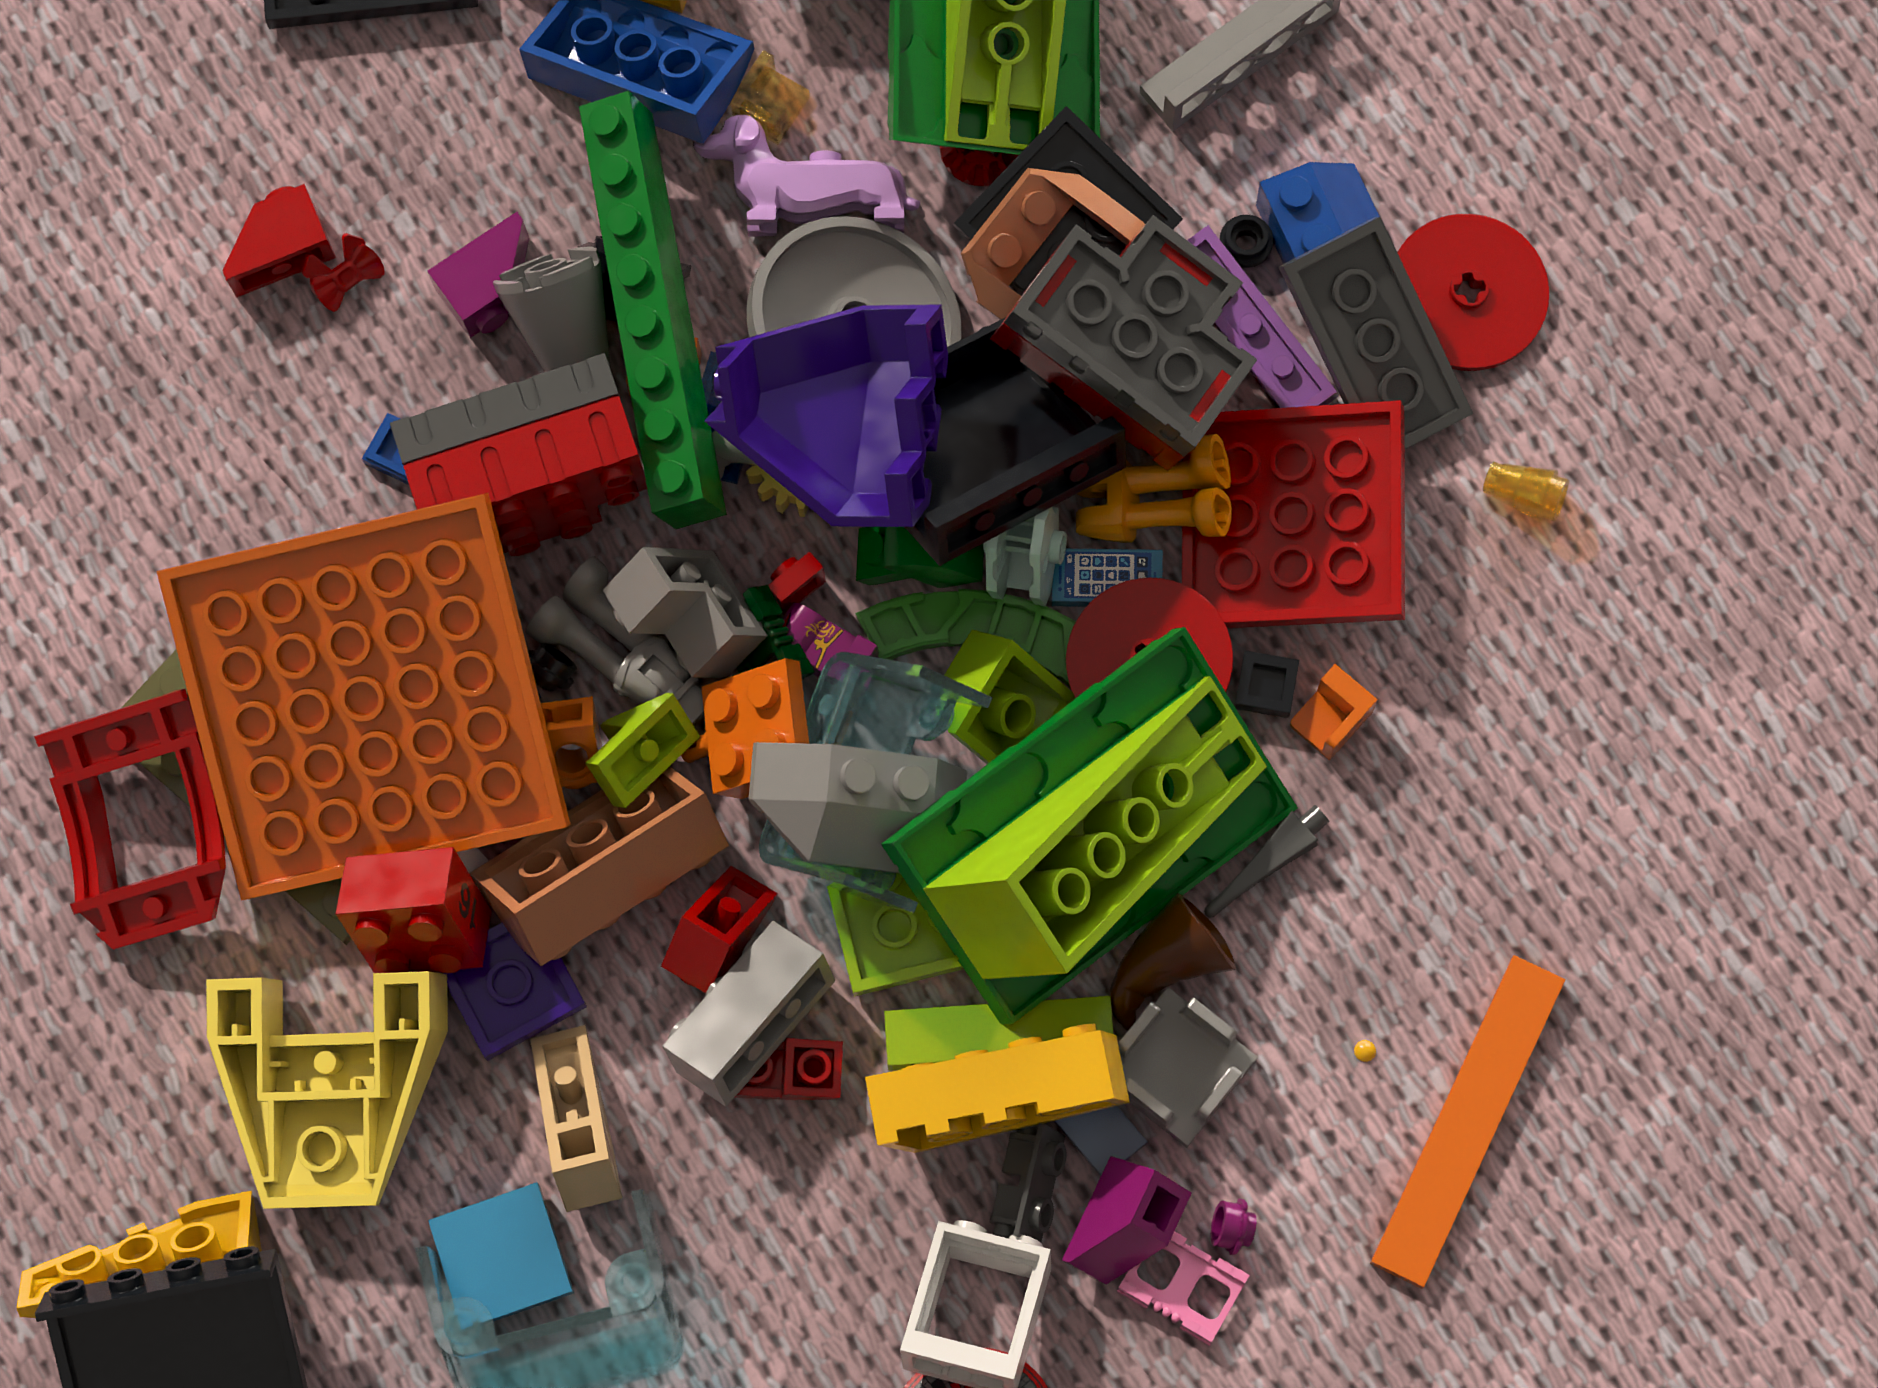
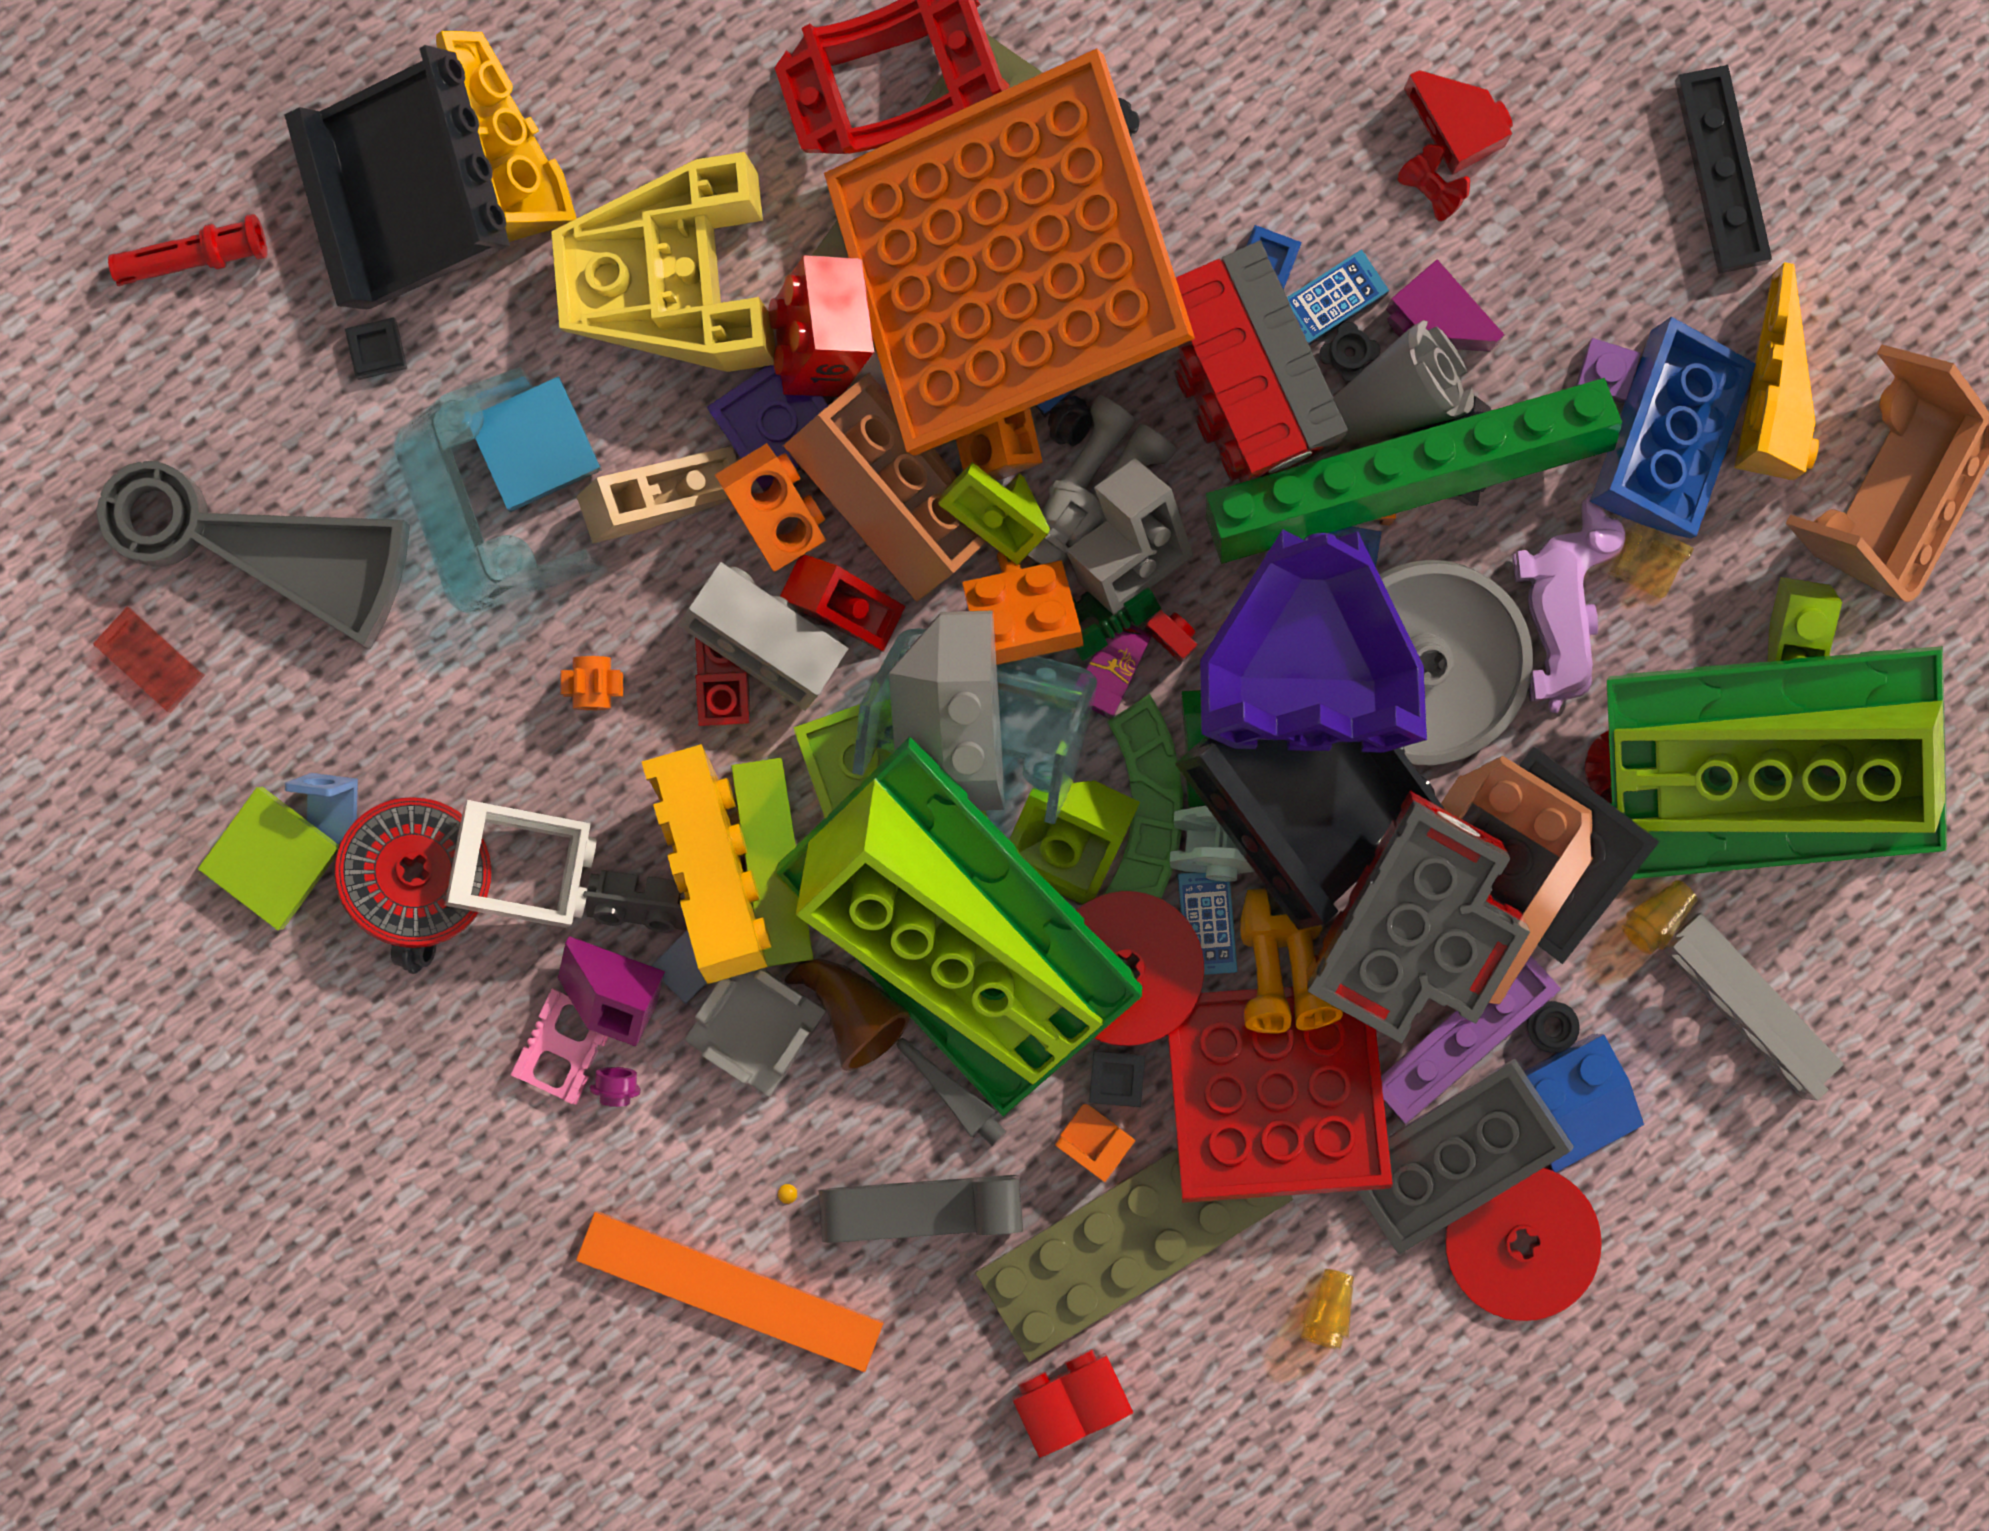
camera: 85 degrees right, 10 degrees up
(443, 370) = (1337, 296): none -> tile
(508, 360) = (1349, 337): none -> black plate
(560, 123) = (1613, 364): none -> medium lavender plate
(610, 998) = (766, 510): none -> orange brick
(779, 1212) = (591, 683): none -> orange gear
(1143, 127) = (1659, 917): none -> clear yellow cone
(1392, 896) = (921, 1209): none -> dark grey beam
(1452, 711) = (1110, 1254): none -> olive plate
(1611, 761) = (1071, 1403): none -> red brick

